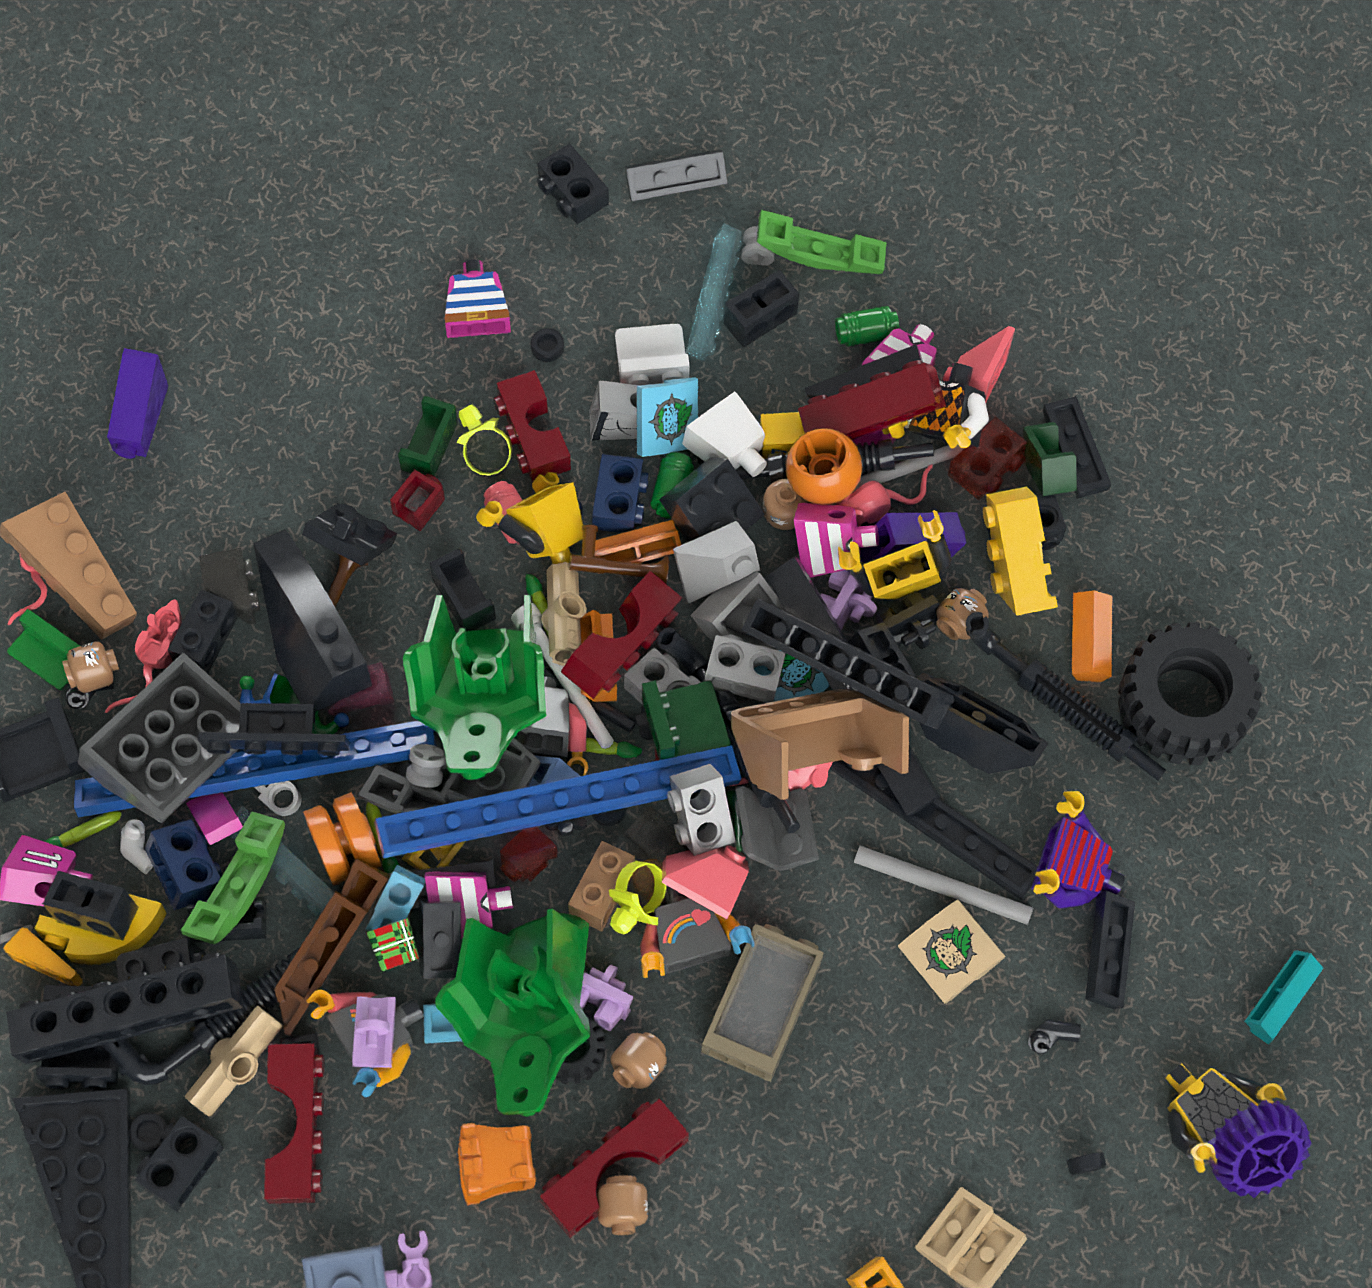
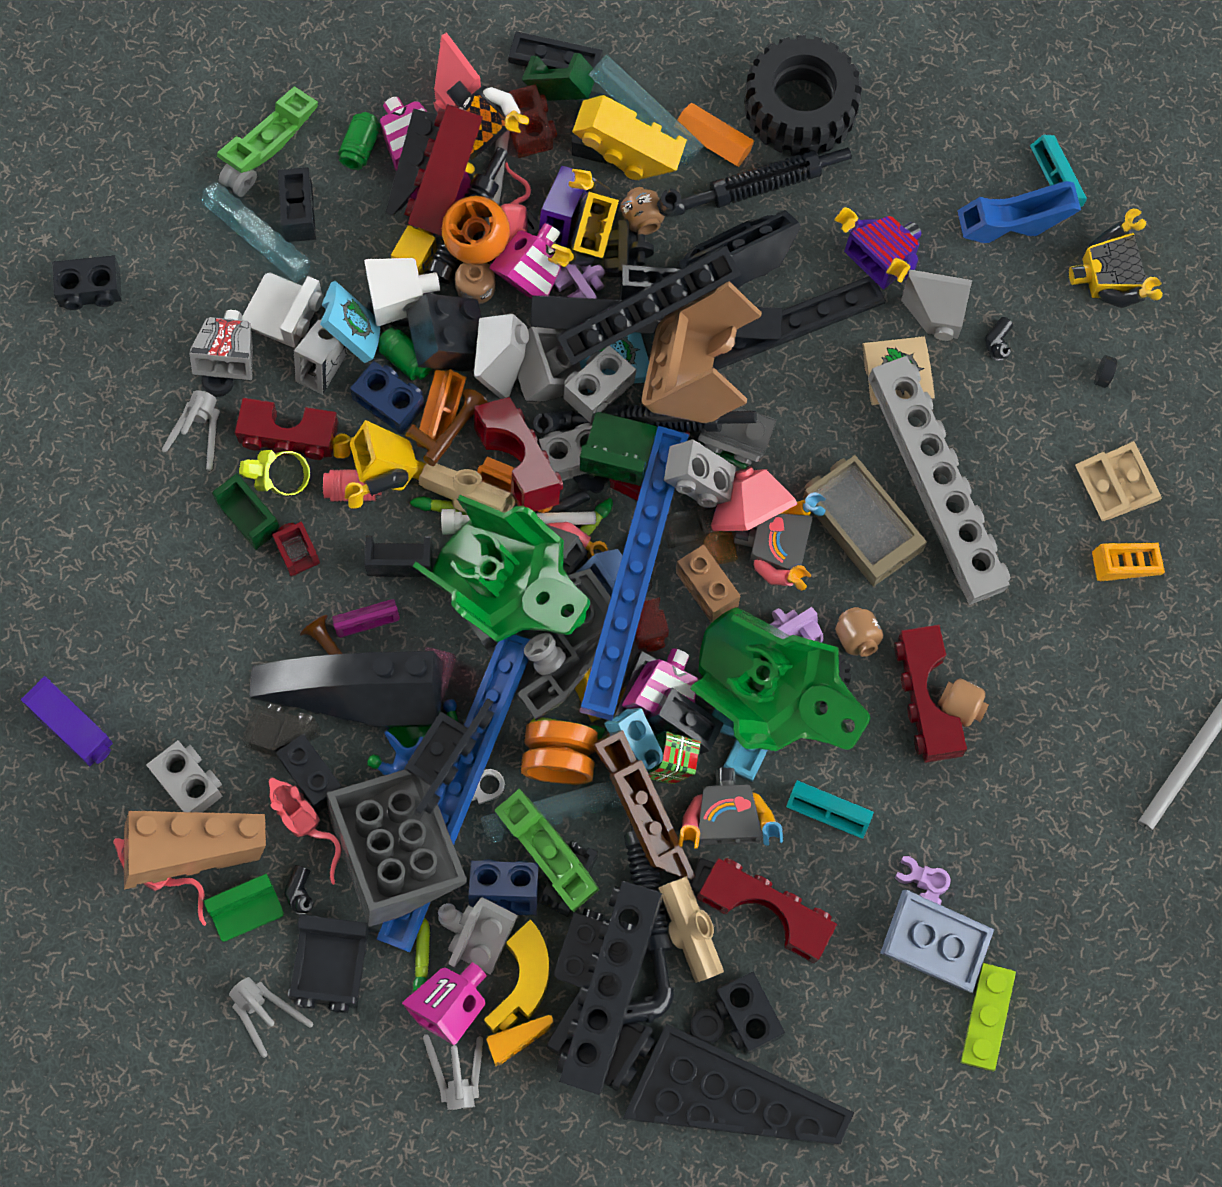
camera: 60 degrees left, 5 degrees up
(90, 667) = (289, 875): medium nougat head -> none
(90, 905) = (508, 970): black brick -> none
(124, 863) = (483, 935): none -> light grey bracket
(131, 532) = (180, 784): none -> light grey brick
(214, 816) = (481, 841): dark pink tile -> none
(350, 533) = (295, 614): black hinge -> none
(374, 1032) = (739, 805): lavender hips -> none
(386, 598) = (366, 618): none -> magenta slope
(433, 1131) = (831, 804): none -> teal piece
(476, 303) = (146, 411): torso -> none
(494, 1161) = (881, 777): orange piece -> none
(507, 344) = (197, 410): none -> light grey plant
(578, 329) = (223, 348): none -> light grey torso
(630, 912) = (743, 567): neon yellow piece -> none
(676, 175) = (131, 201): plate -> none
(923, 940) = (906, 376): none -> light grey brick
(943, 885) = (843, 348): light grey piece -> none
(1047, 950) = (937, 302): none -> light grey slope
(1068, 554) = (648, 110): none -> clear light blue piece
(1110, 950) = (960, 264): black plate -> none
(1208, 983) = (1025, 214): none -> blue arch
(1259, 1148) = (1165, 249): dark purple gear -> none

